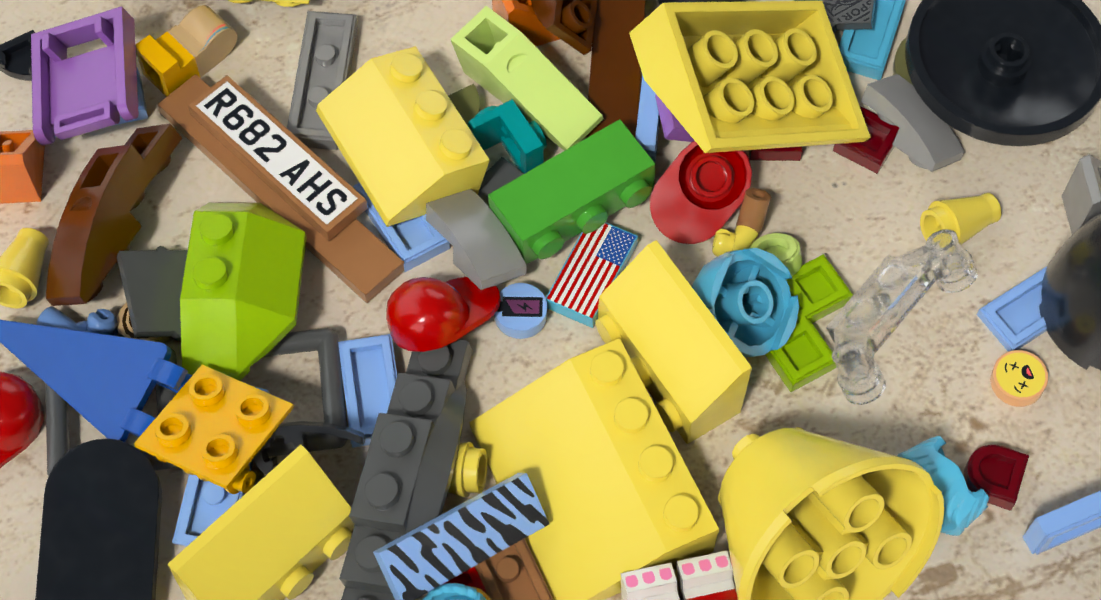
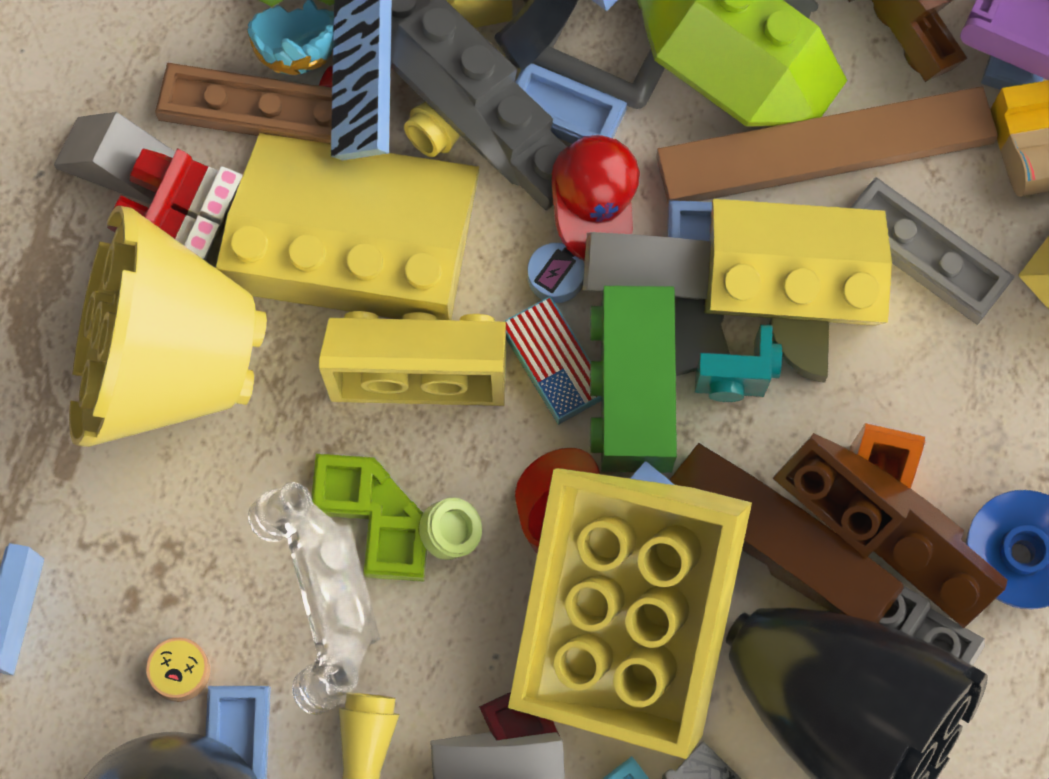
camera: 125 degrees right, 10 degrees up
(278, 157) = (850, 148): tile -> none
(515, 69) = (787, 409): yellowish green slope -> none
(748, 224) = (497, 525): arm -> none
(749, 299) = (408, 442): medium azure cylinder -> none
(960, 504) = (124, 502): medium azure hair -> none
(997, 472) = (109, 574): dark red tile -> none

